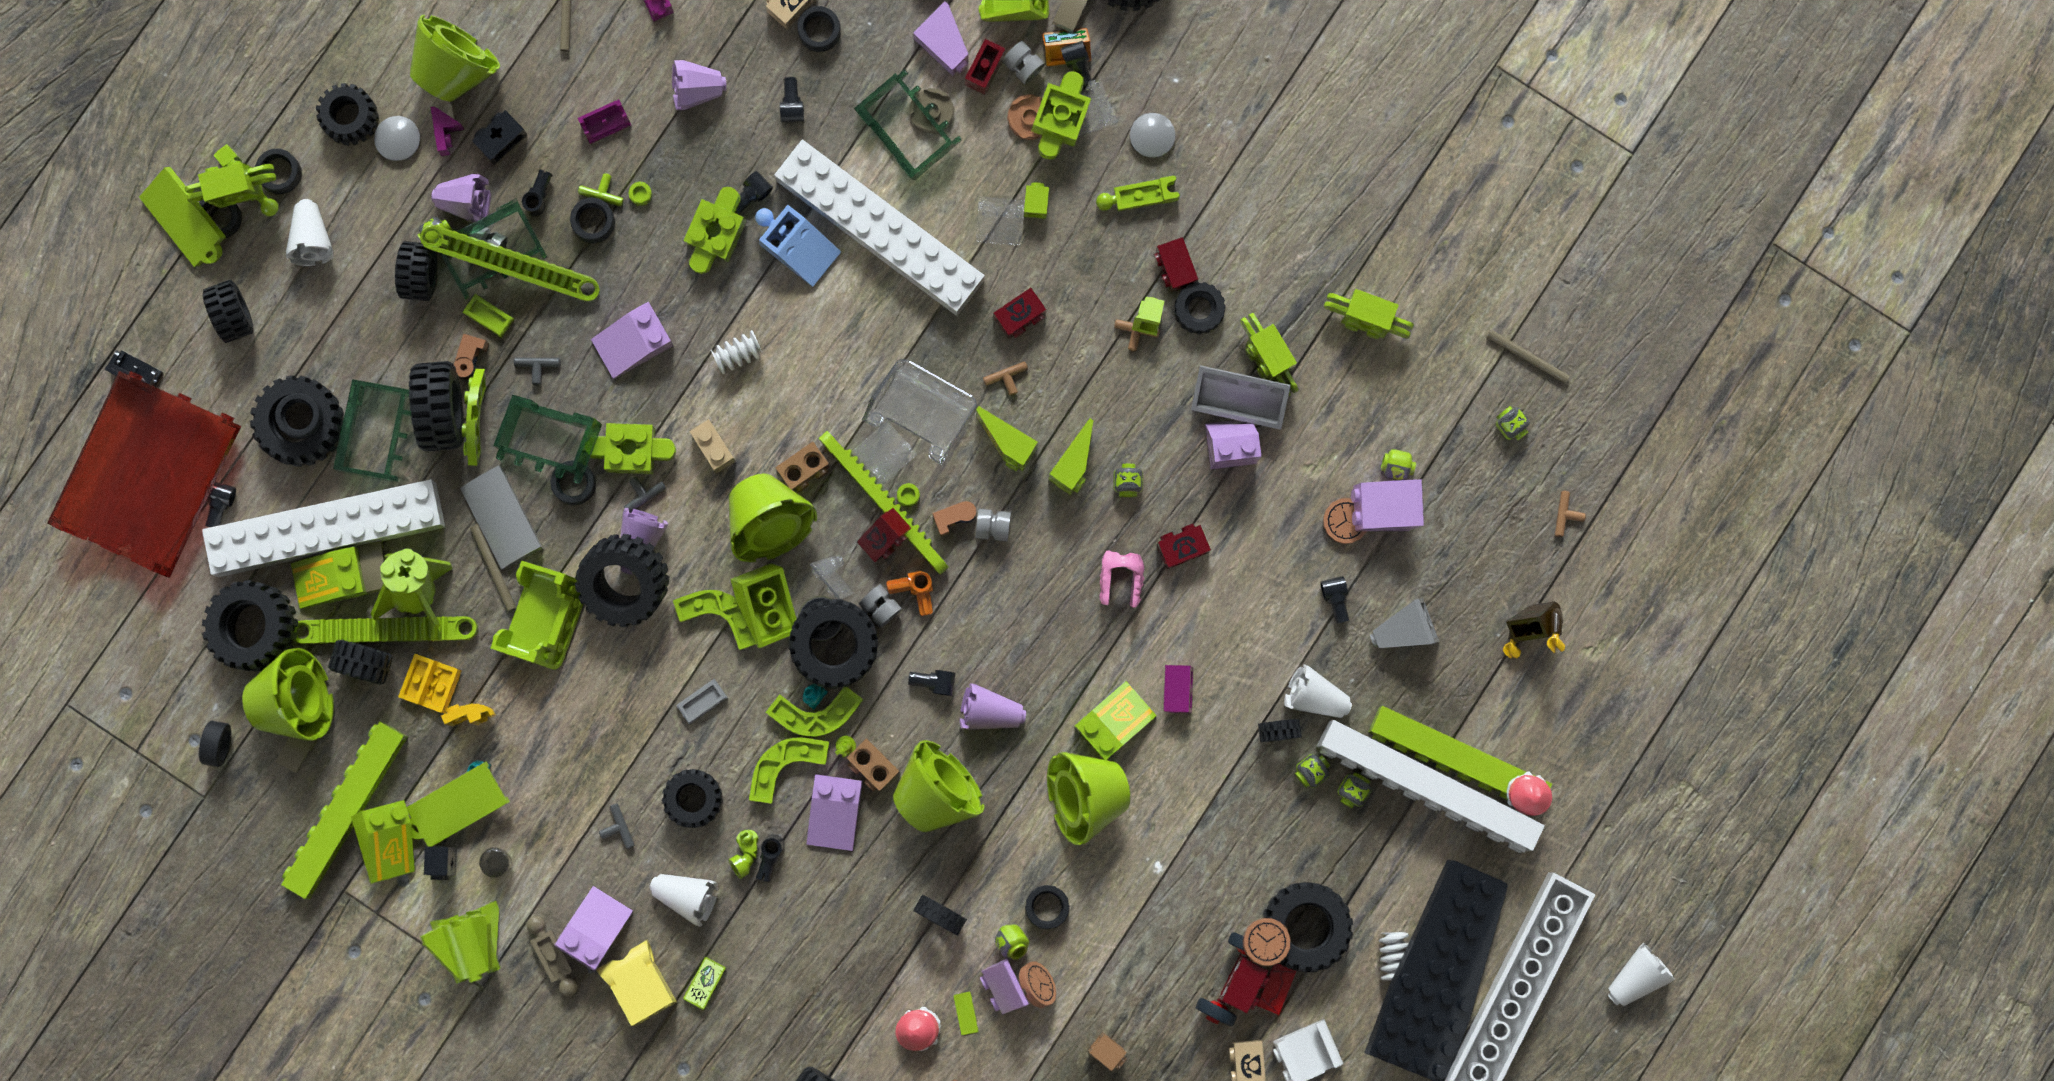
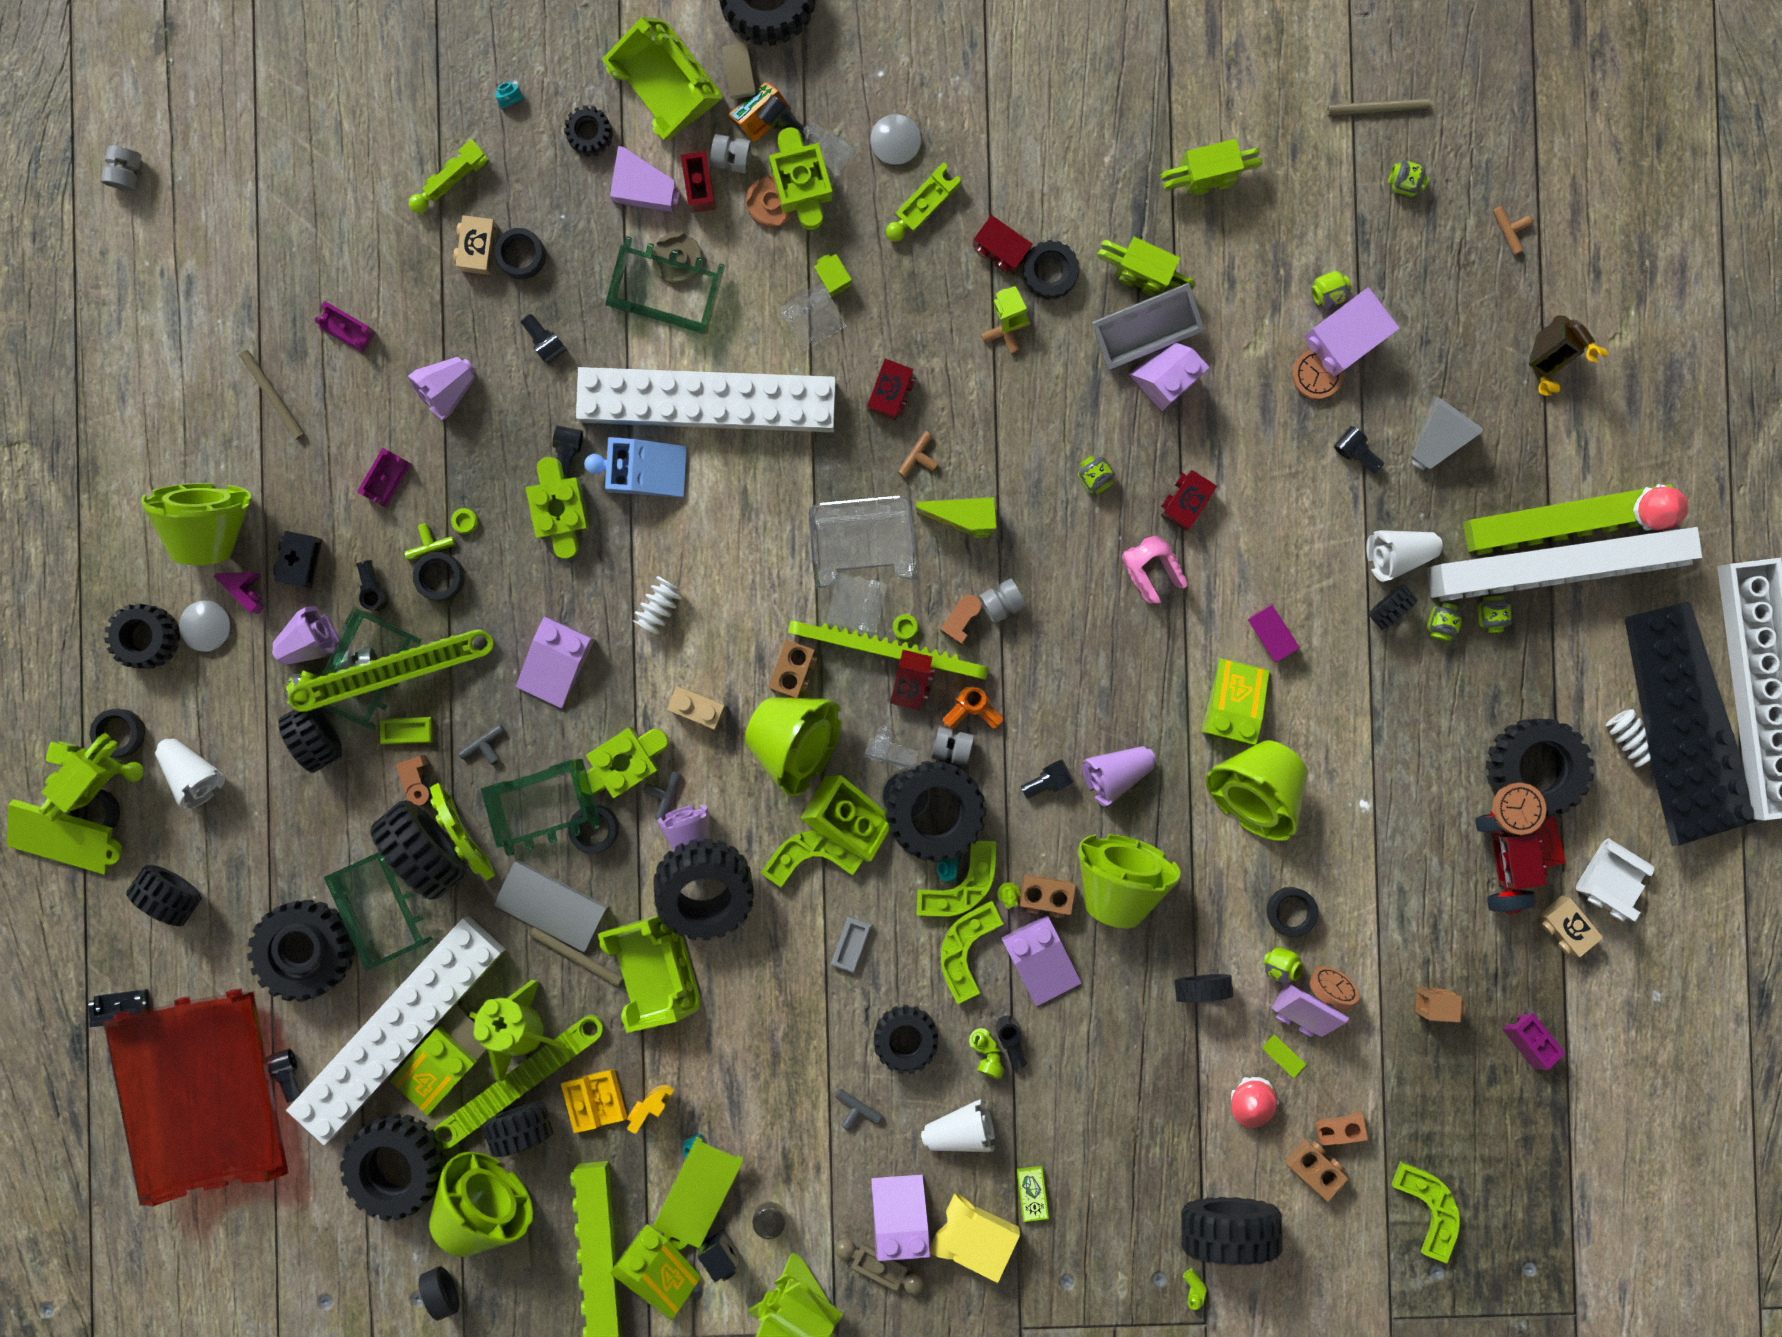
camera: 35 degrees left, 5 degrees up
(1071, 467) = (1038, 494): lime slope -> none

